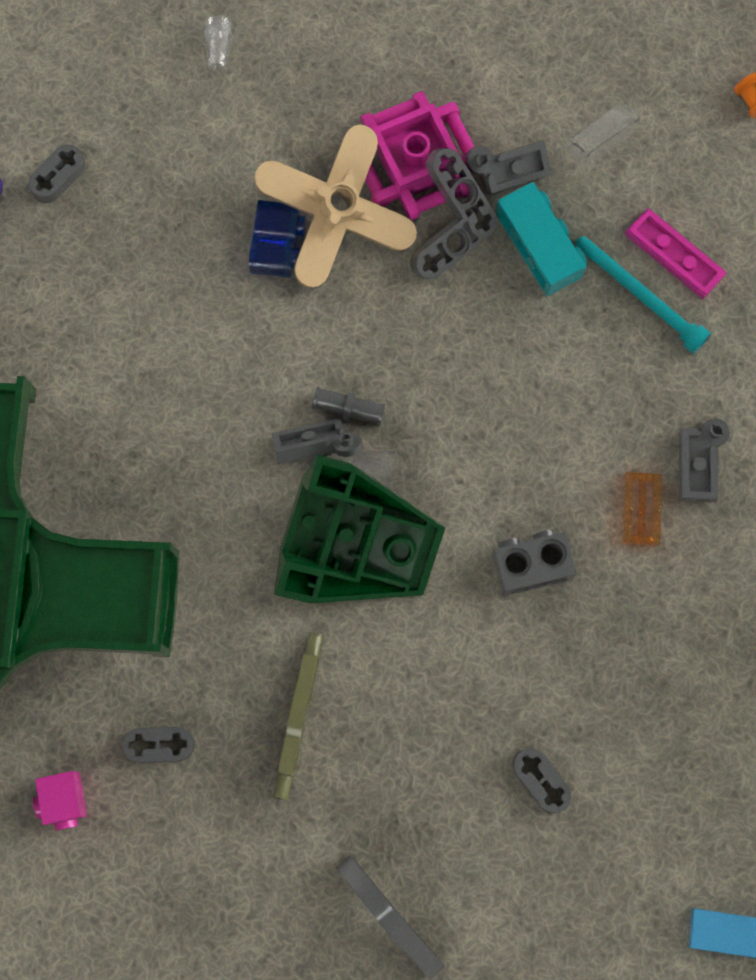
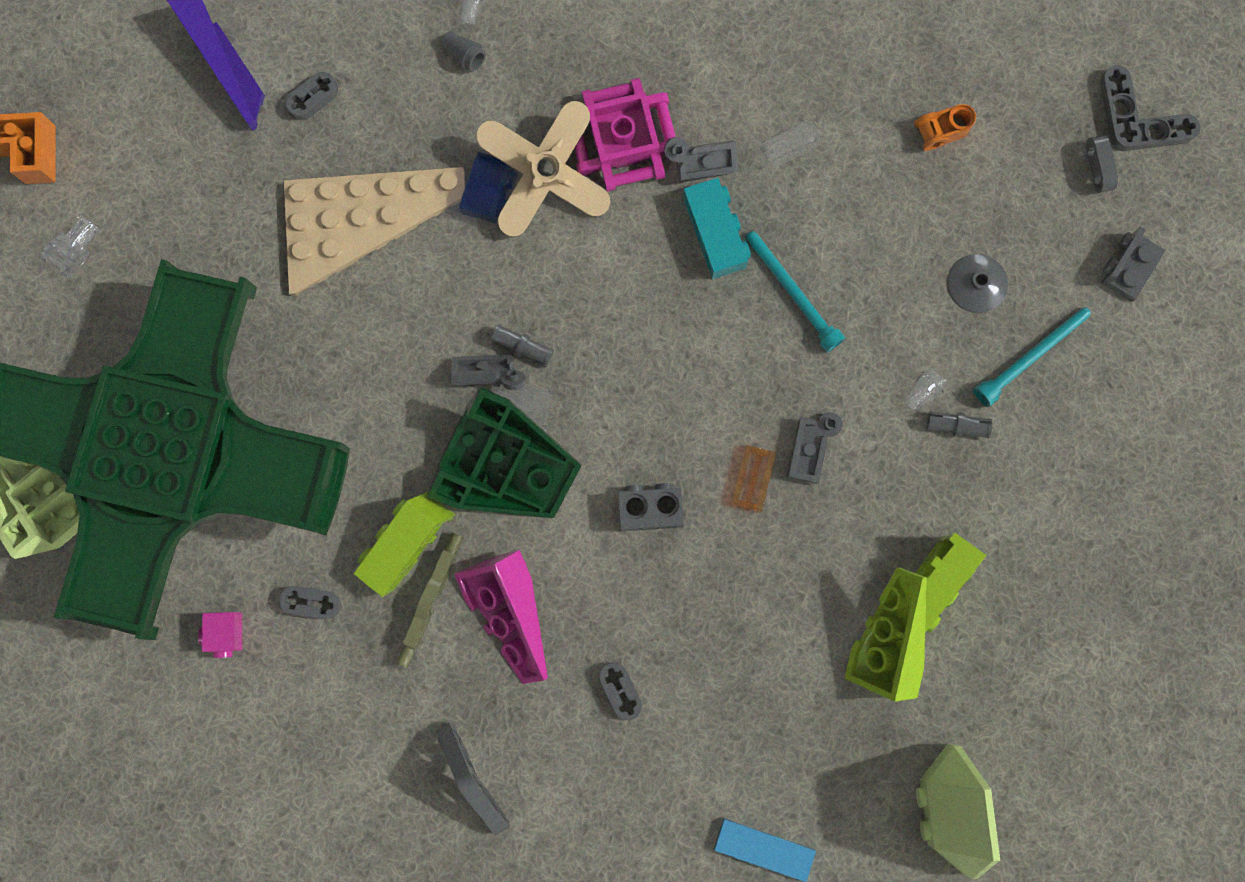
camera: 10 degrees right, 5 degrees up
(121, 299) = (347, 217): none -> tan wing
(221, 96) = (465, 52): none -> dark grey cone
(253, 654) = (401, 543): none -> lime wedge
(388, 699) = (507, 601): none -> dark pink wedge
(464, 222) = (651, 203): dark grey beam -> none
(675, 253) = (831, 261): dark pink tile -> none

